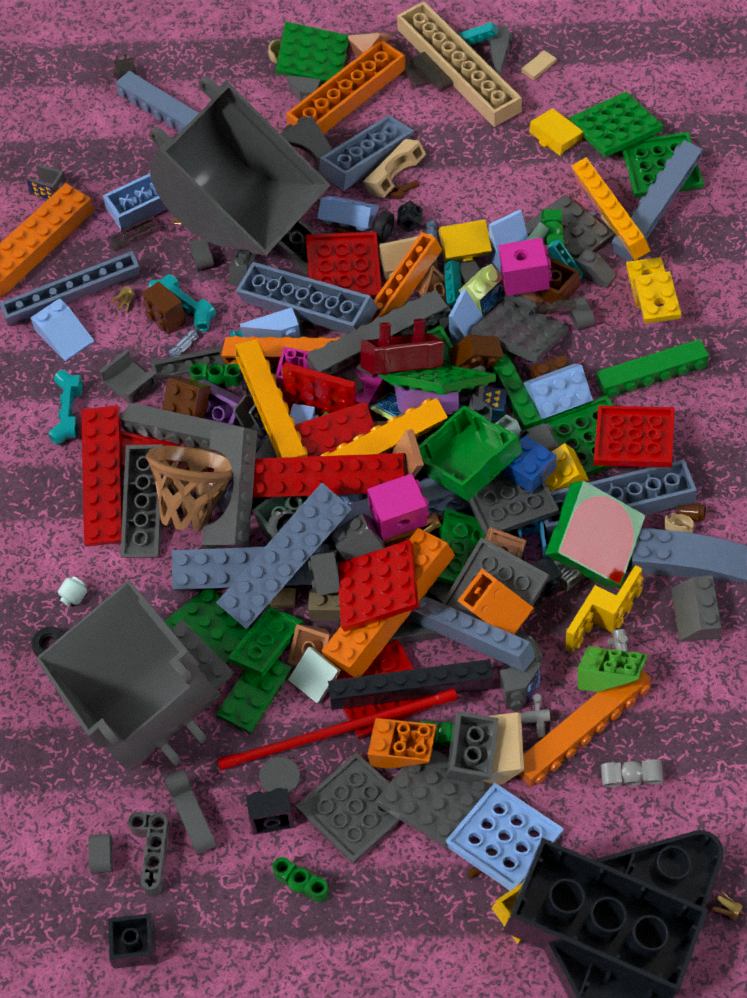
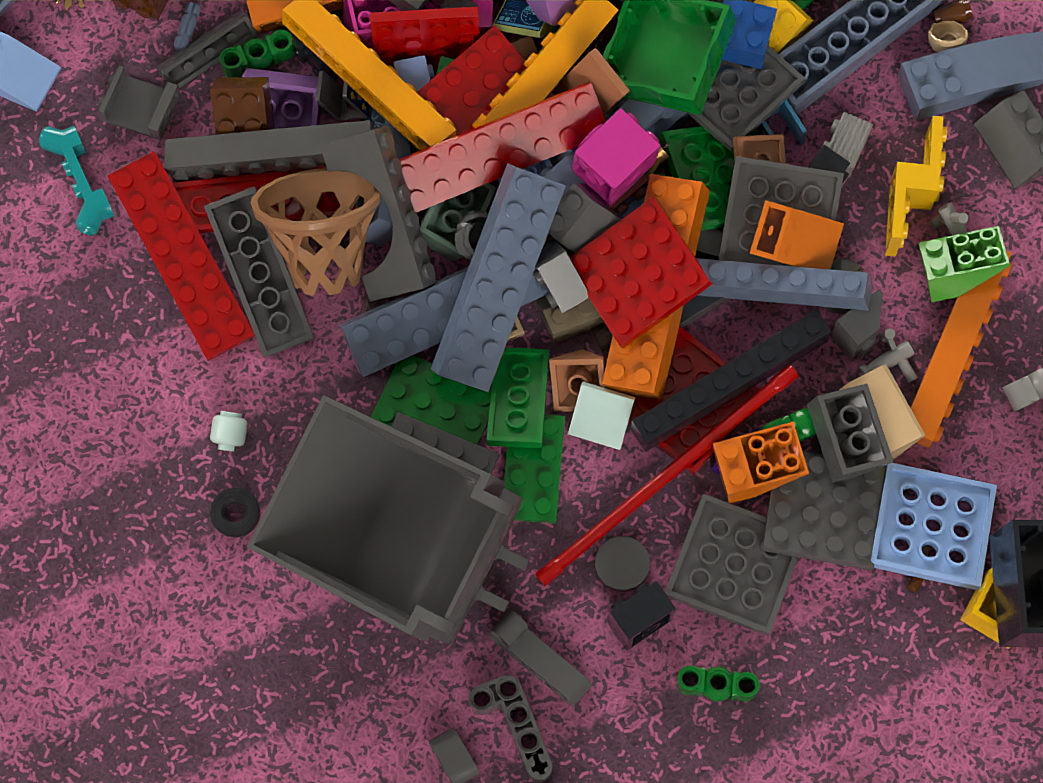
camera: 30 degrees left, 15 degrees up
(595, 534) = (866, 93): tile -> none

